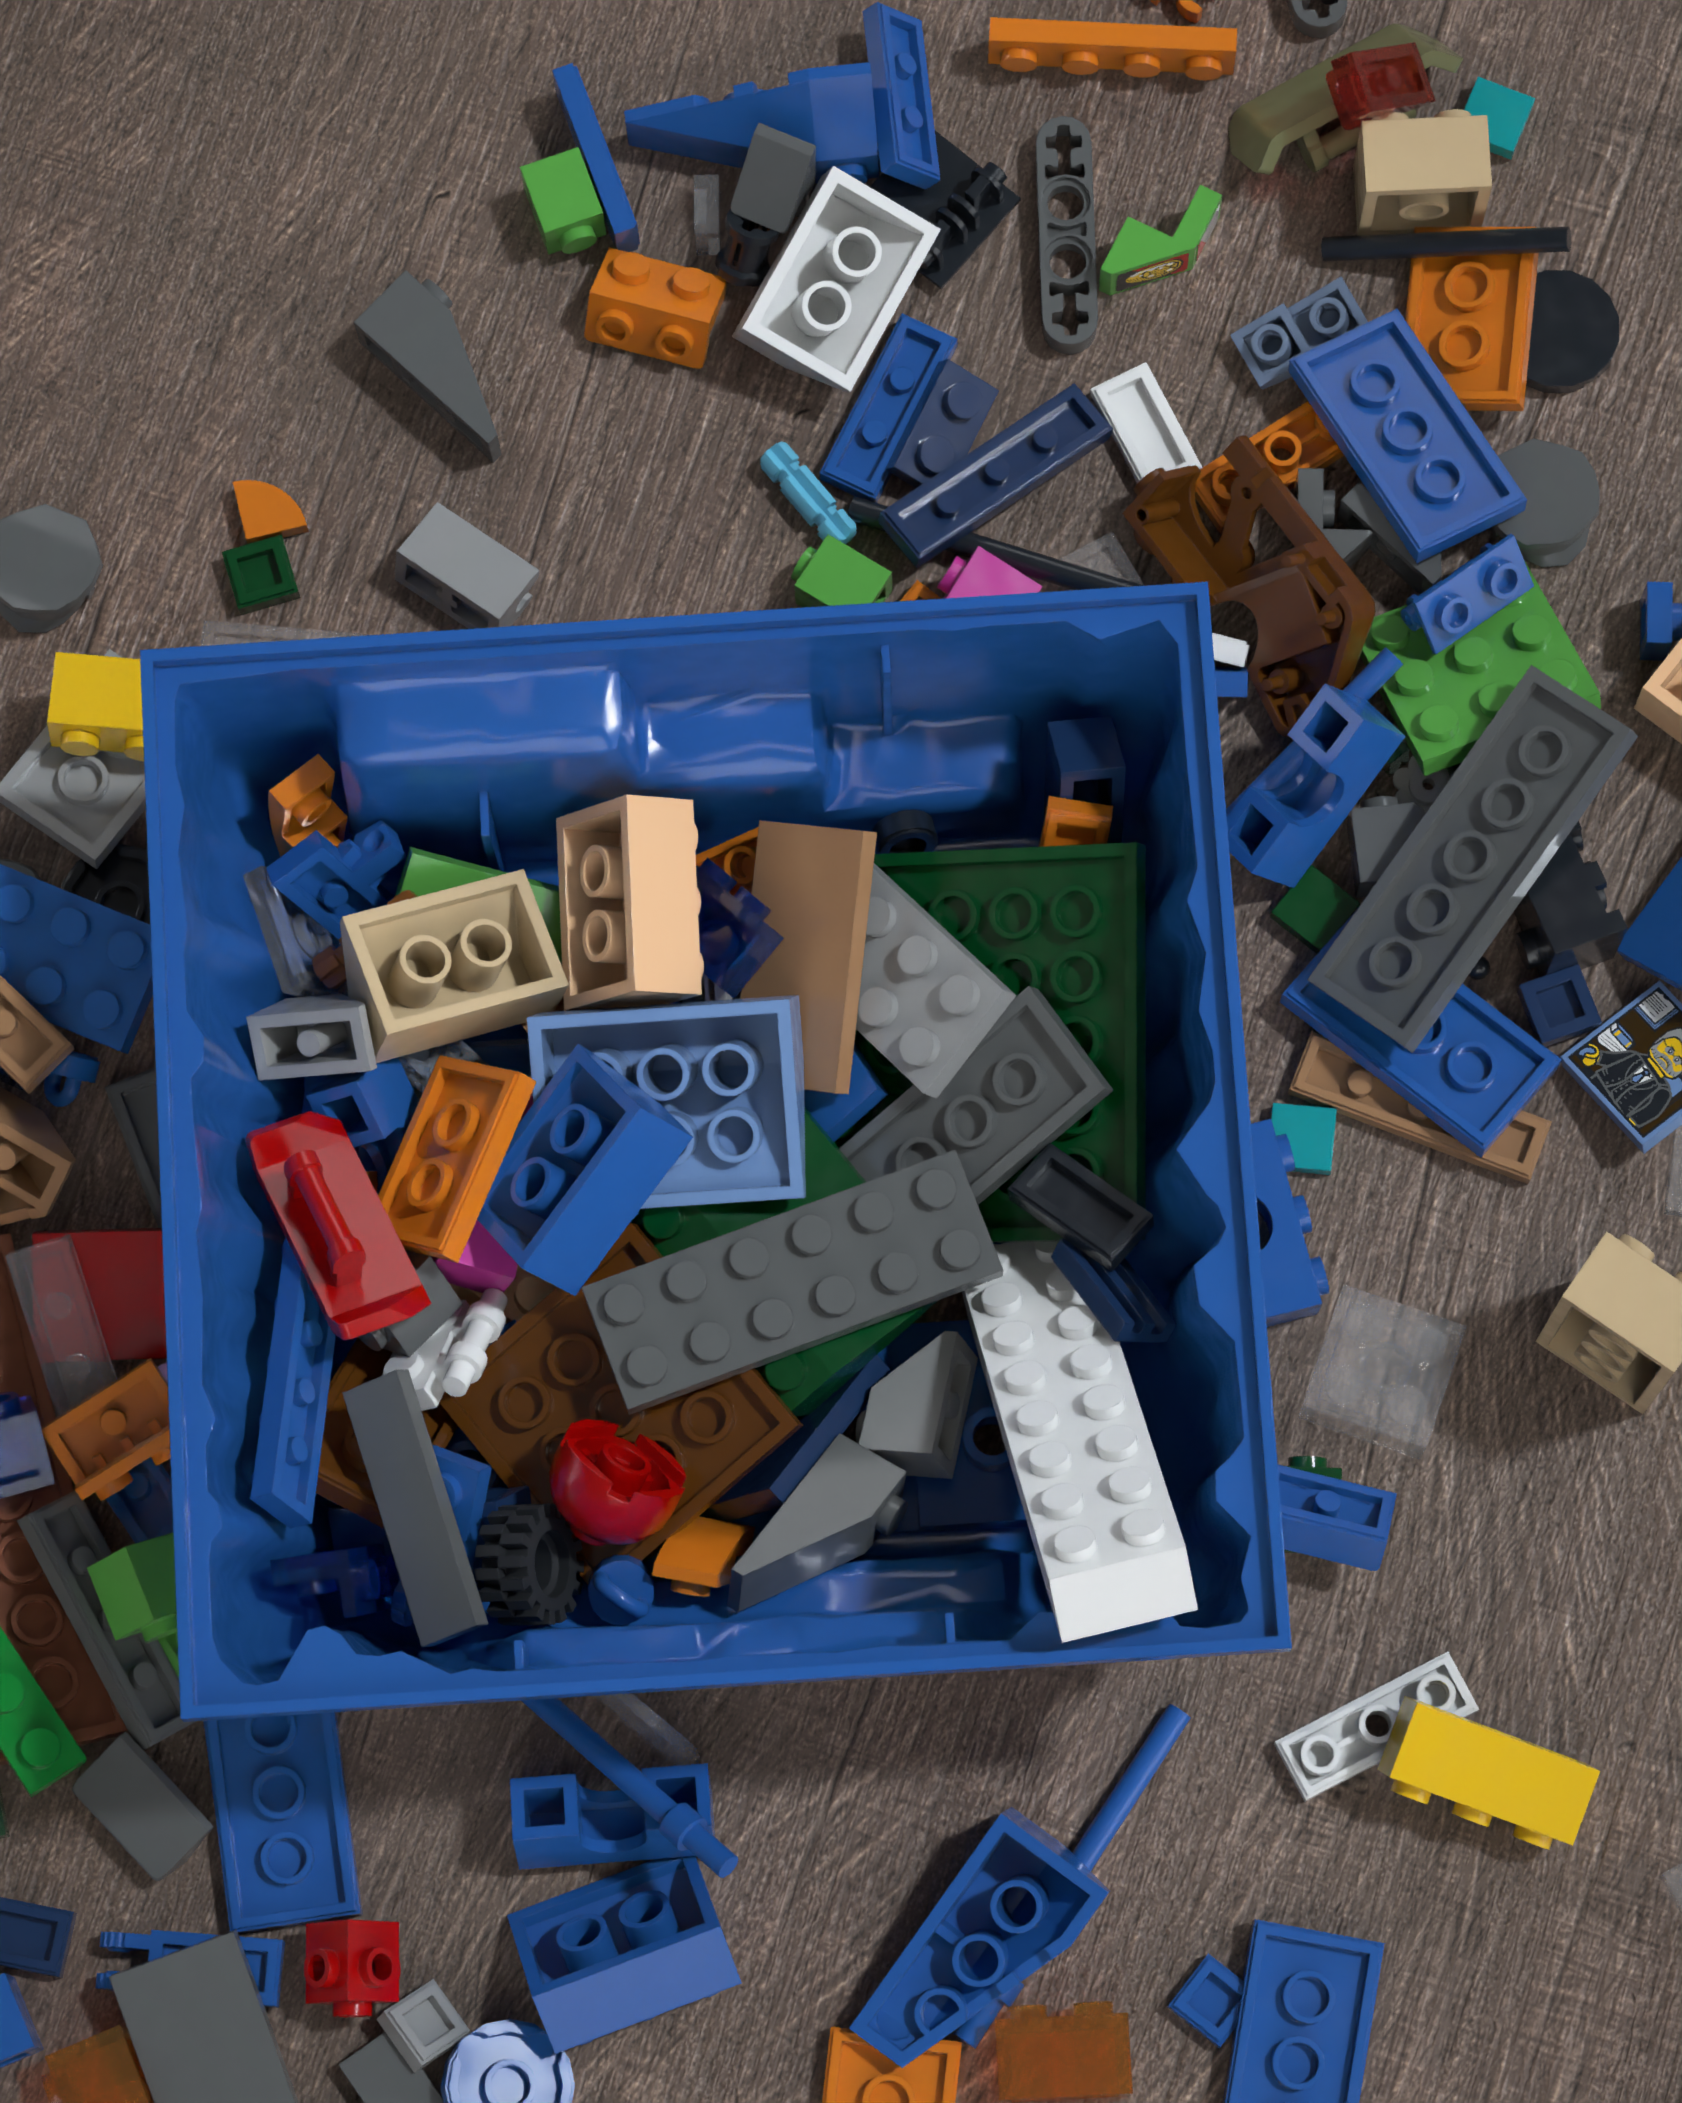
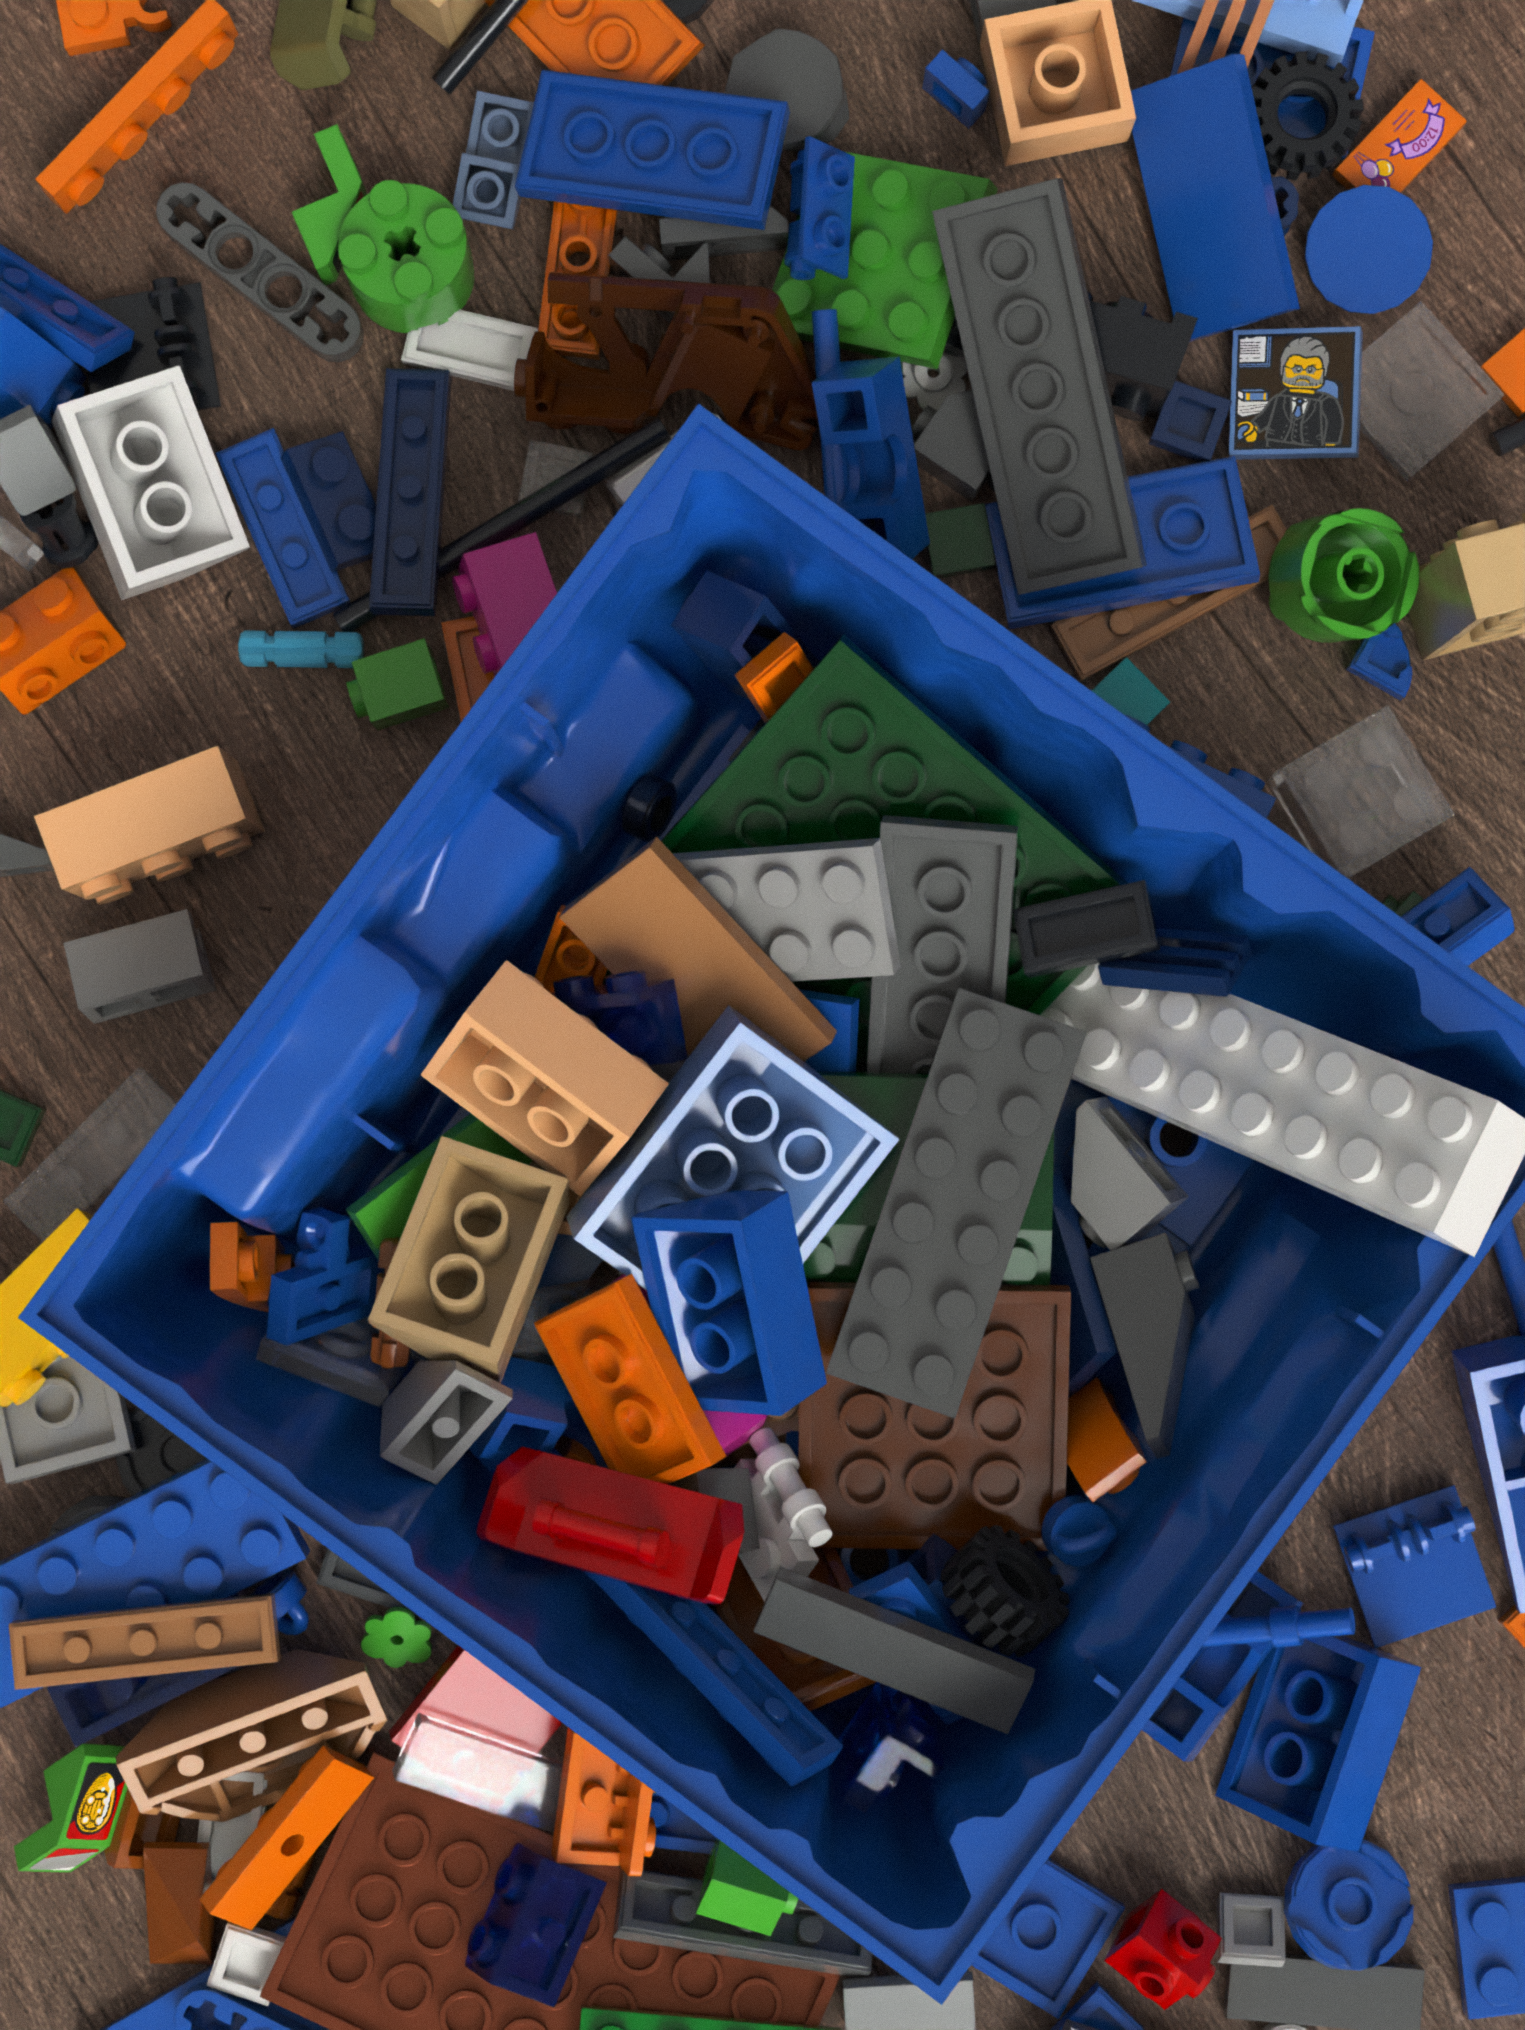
camera: 55 degrees left, 10 degrees up
(112, 1181) = (397, 1638): none -> bright green plant
(579, 492) = (150, 826): none -> light nougat brick
(611, 1486) = (1001, 1473): red cylinder -> none
(817, 1920) = (1415, 1566): none -> blue hinge
(1168, 326) = (380, 264): none -> bright green brick
(1509, 1307) = (1384, 662): none -> blue tile
(1570, 1227) = (1350, 544): none -> bright green brick

